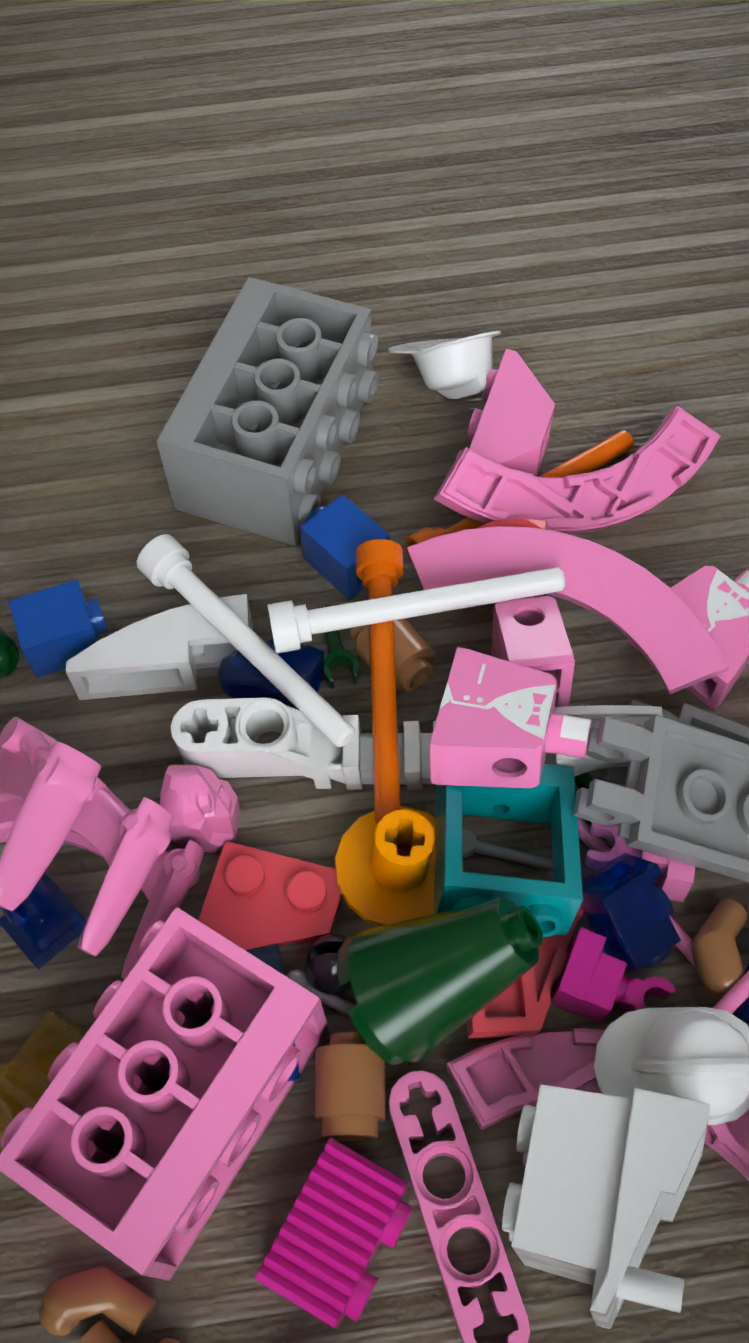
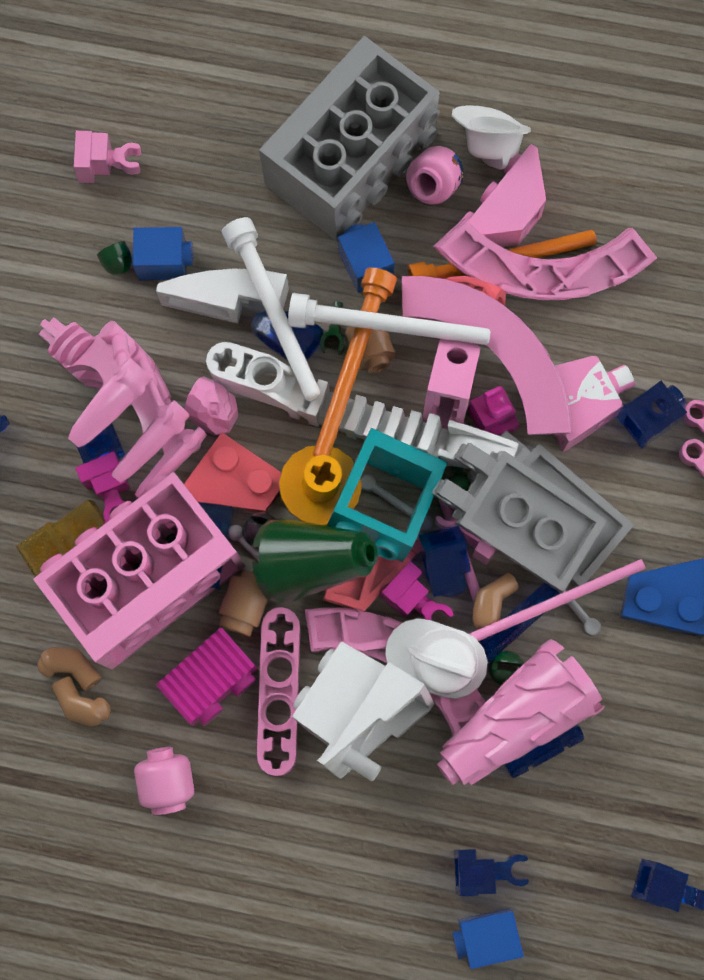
camera: 20 degrees right, 15 degrees up
(68, 969) = (98, 475): none -> dark pink piece
(380, 425) = (435, 175): none -> bright pink head
(500, 725) = (405, 423): bright pink torso -> none
(604, 678) = (493, 412): none -> dark pink piece

